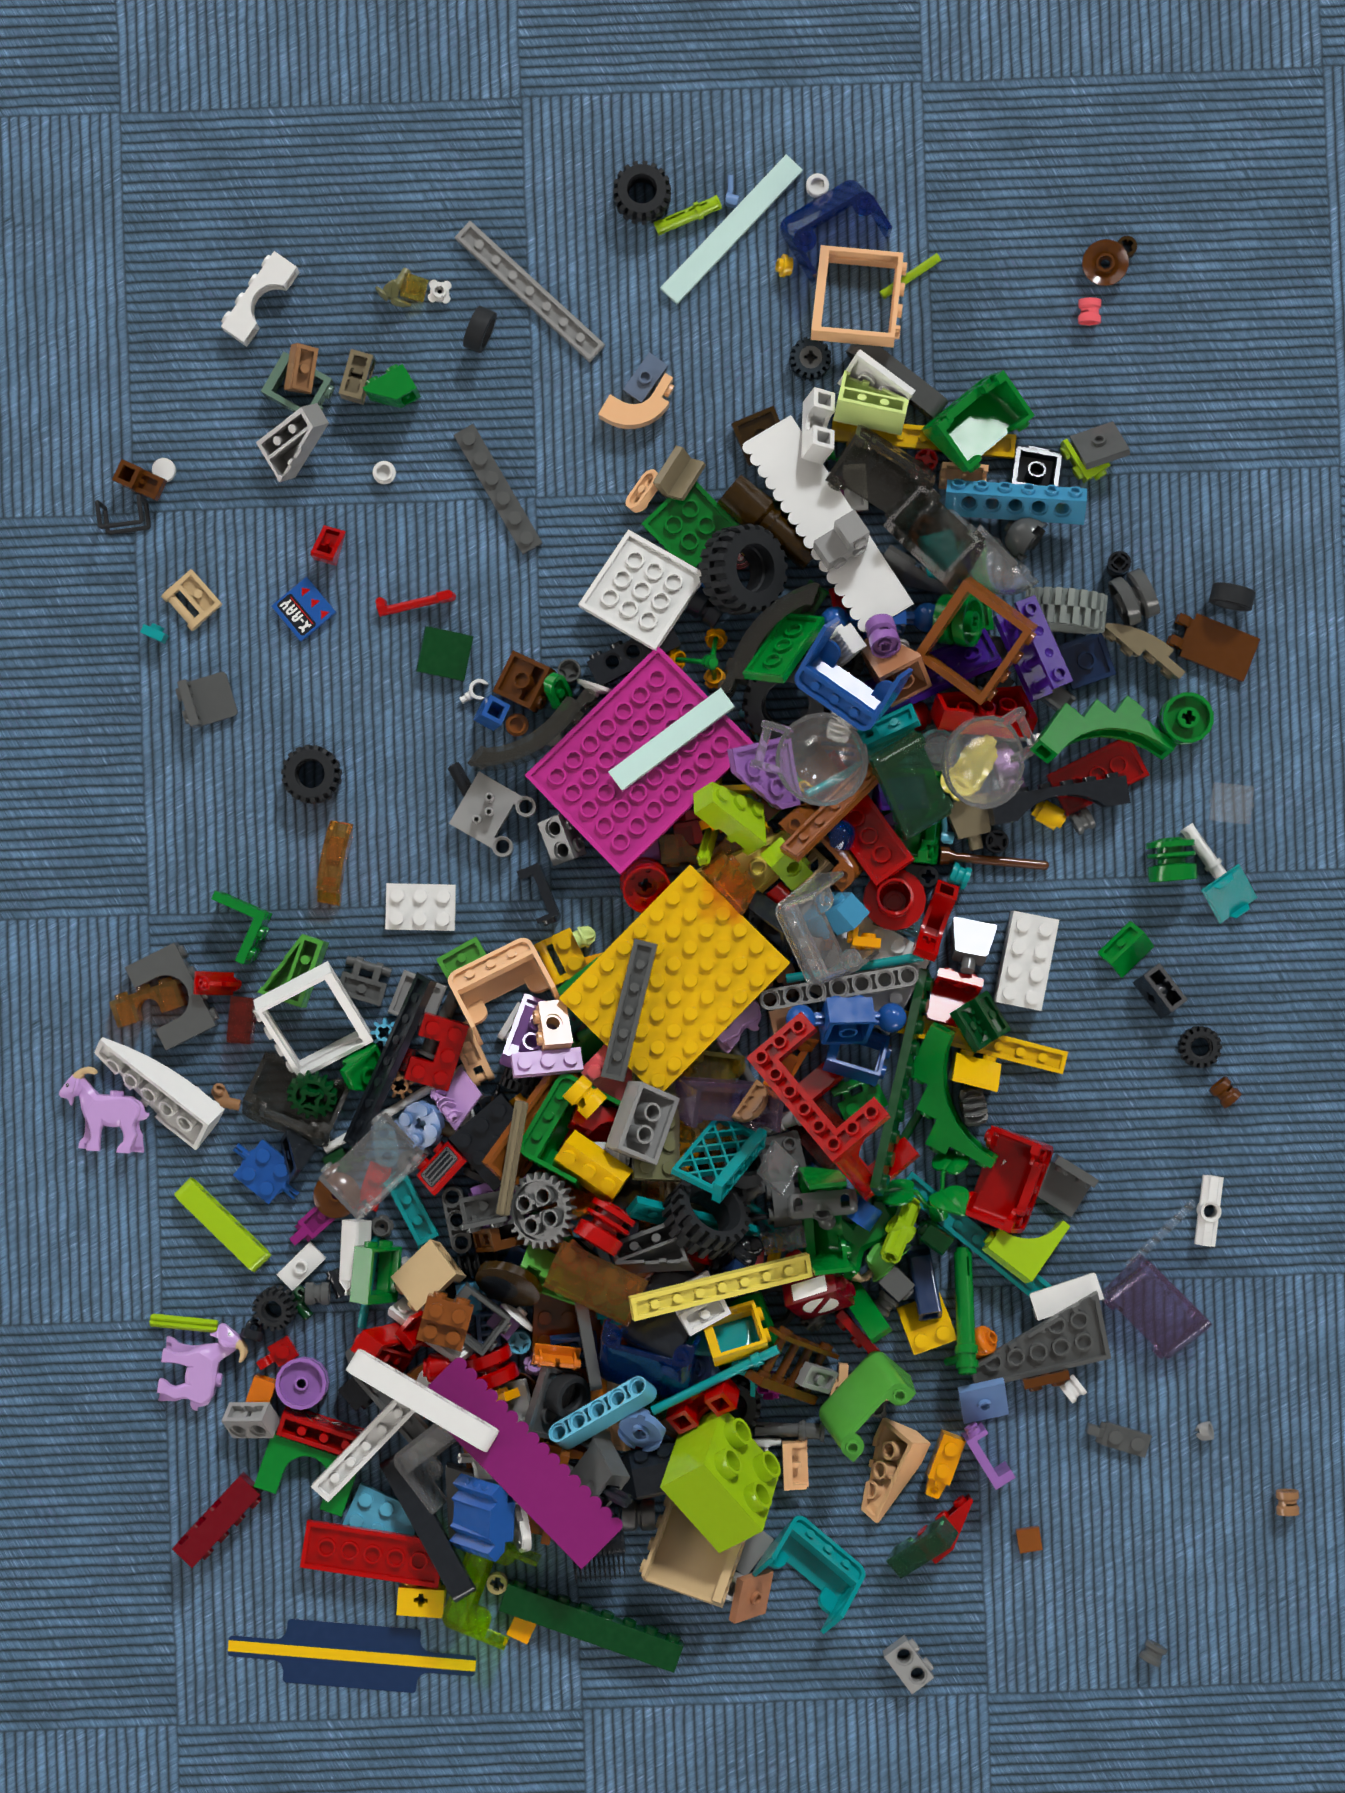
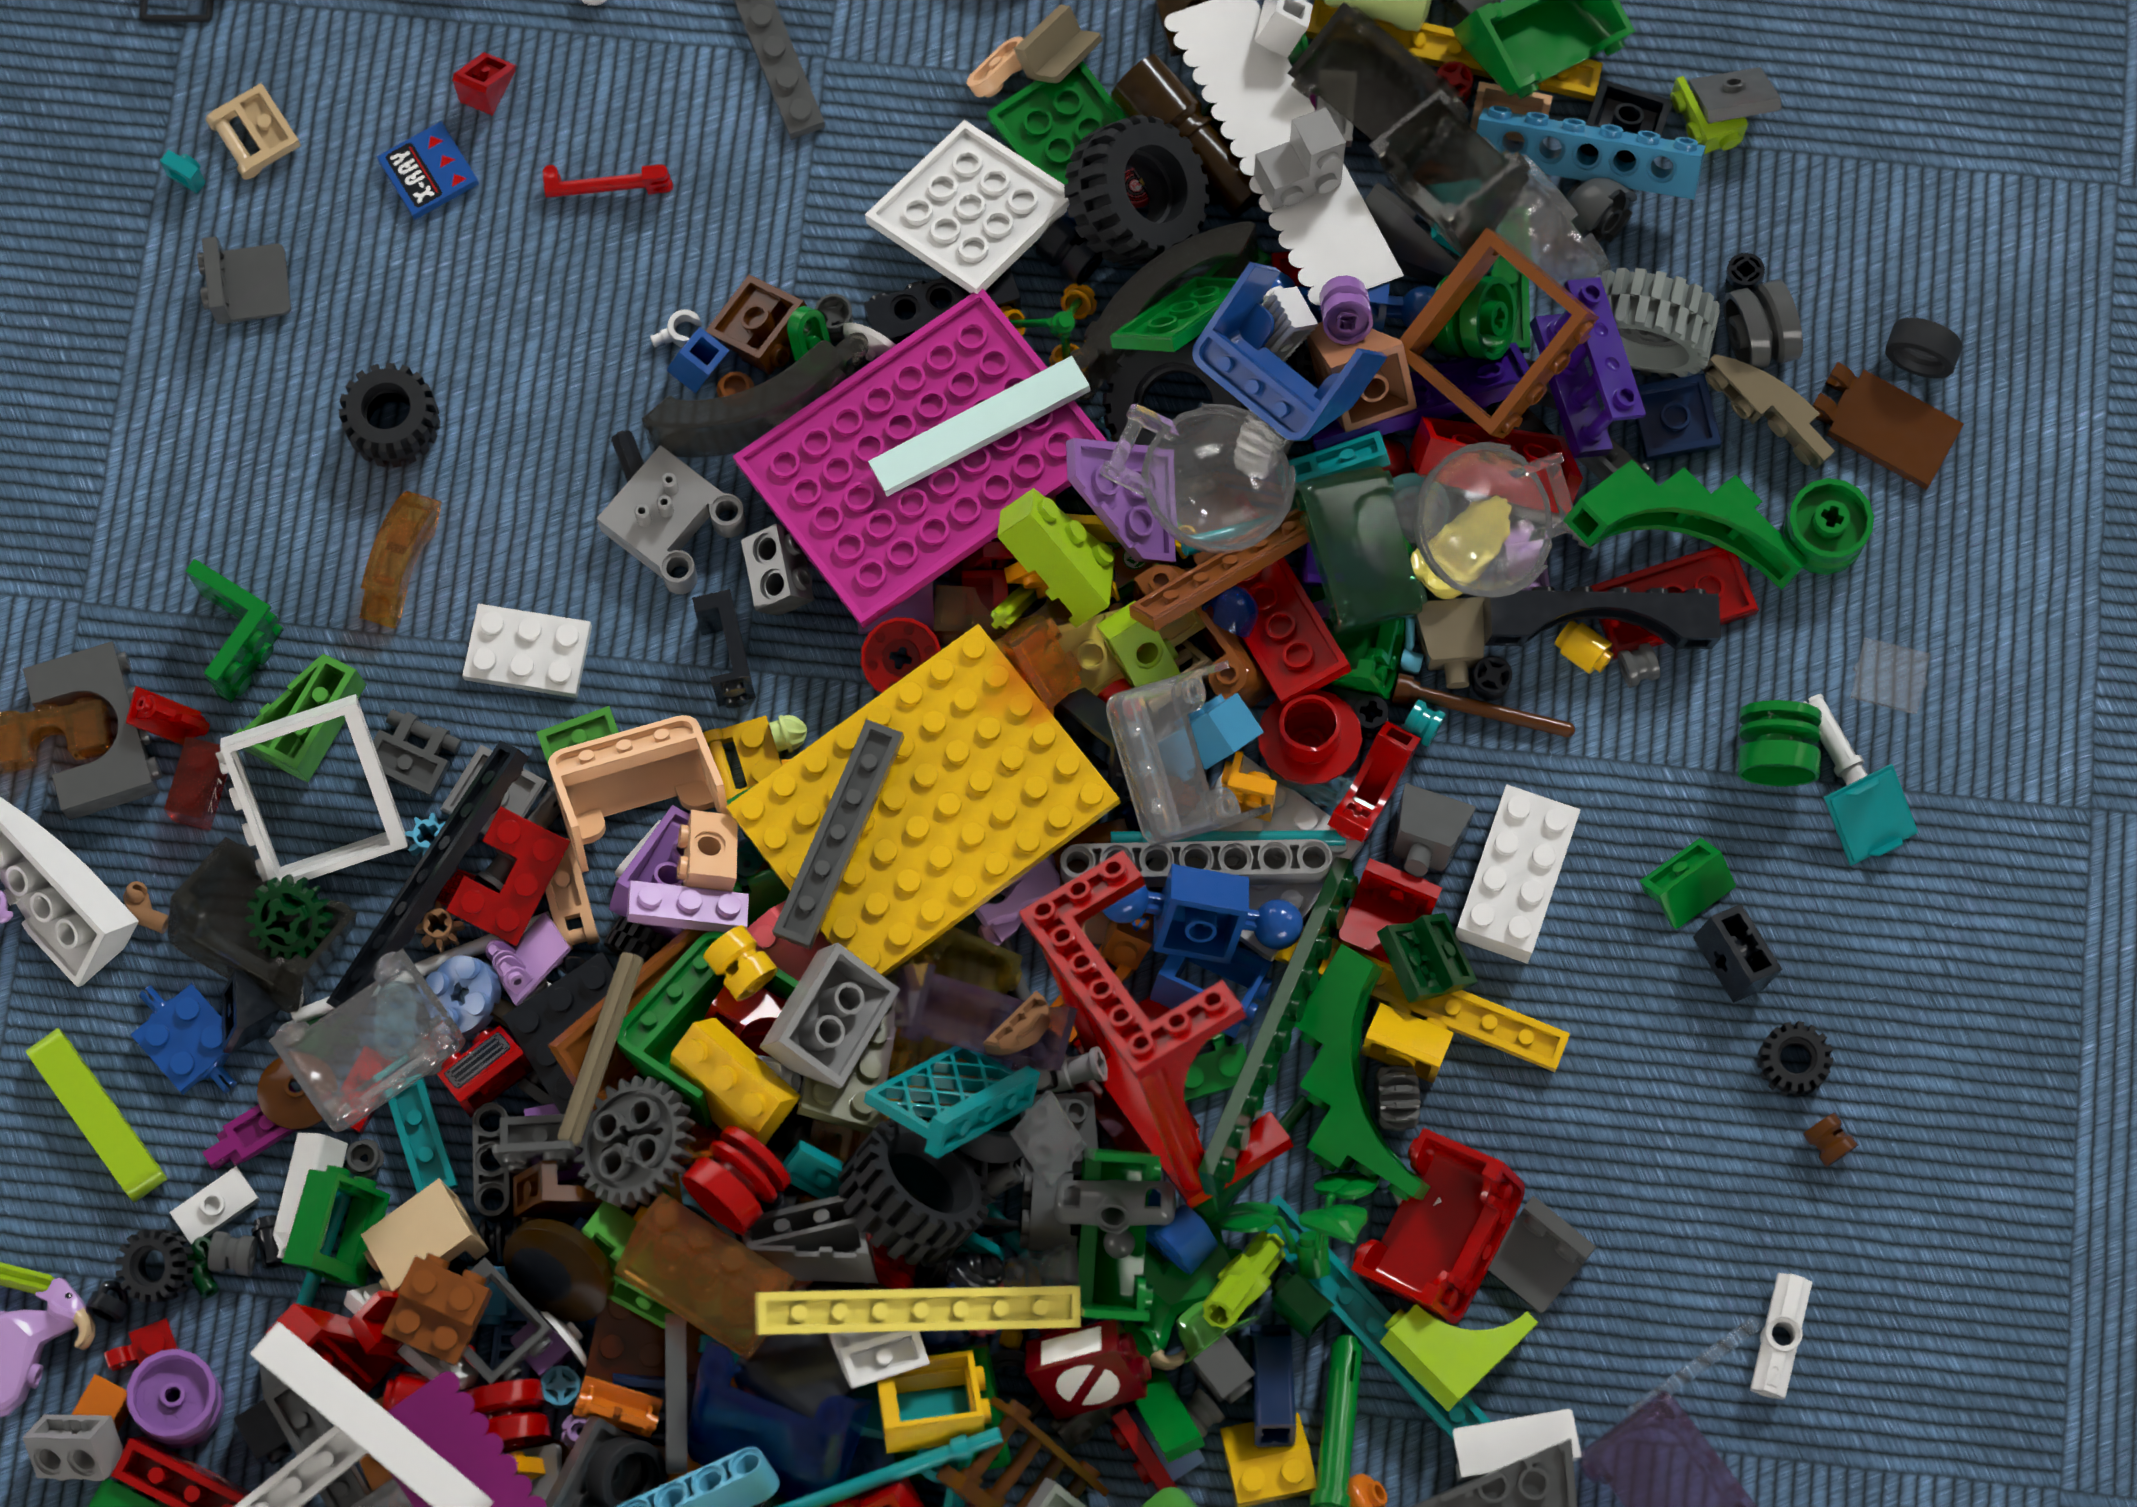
camera: 10 degrees right, 15 degrees down
(360, 1066) = (375, 885): green plate -> none
(444, 653) = (638, 265): dark green slope -> none

